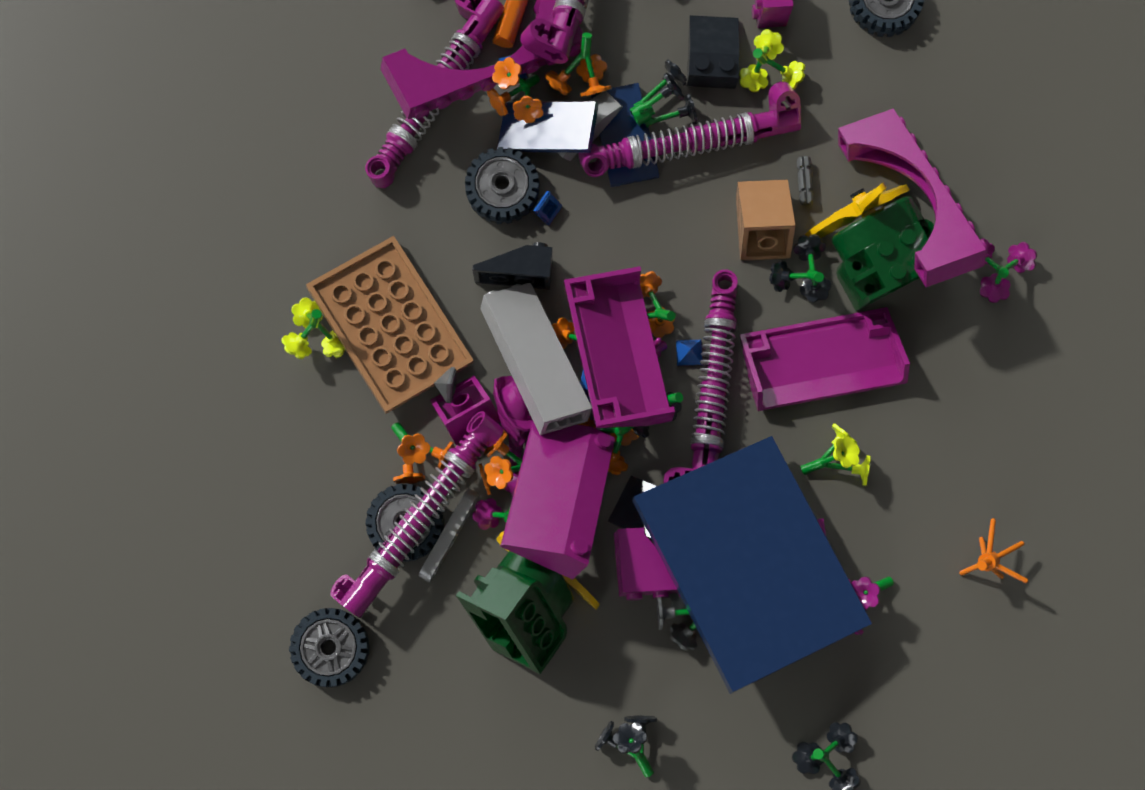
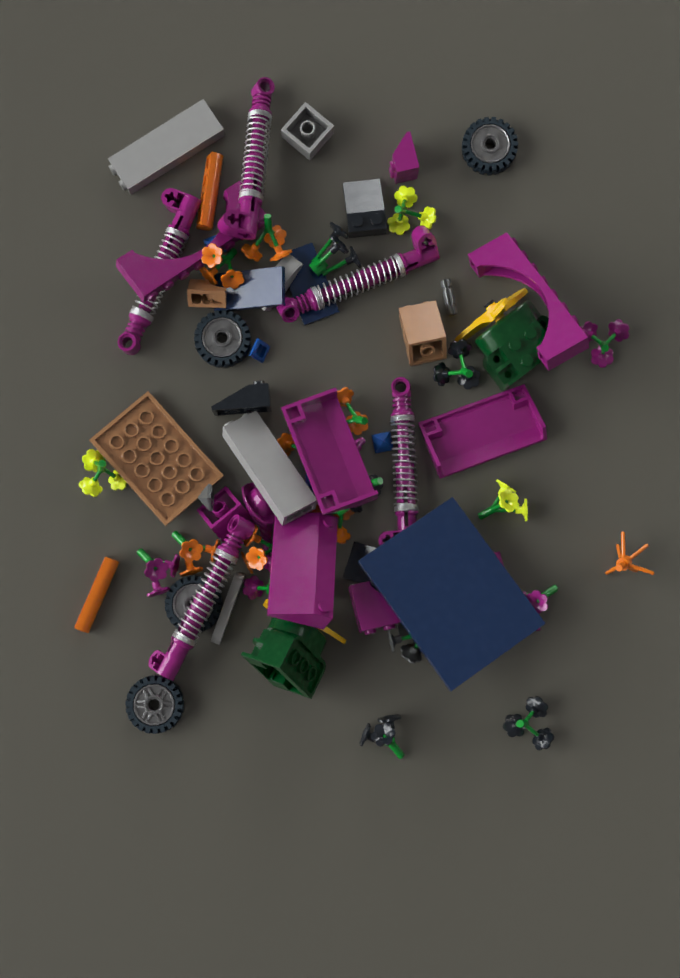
camera: 10 degrees left, 5 degrees up
(278, 488) = (96, 594): none -> orange brick
(364, 467) = (157, 569): none -> magenta plant
(490, 125) = (204, 294): none -> medium nougat arch

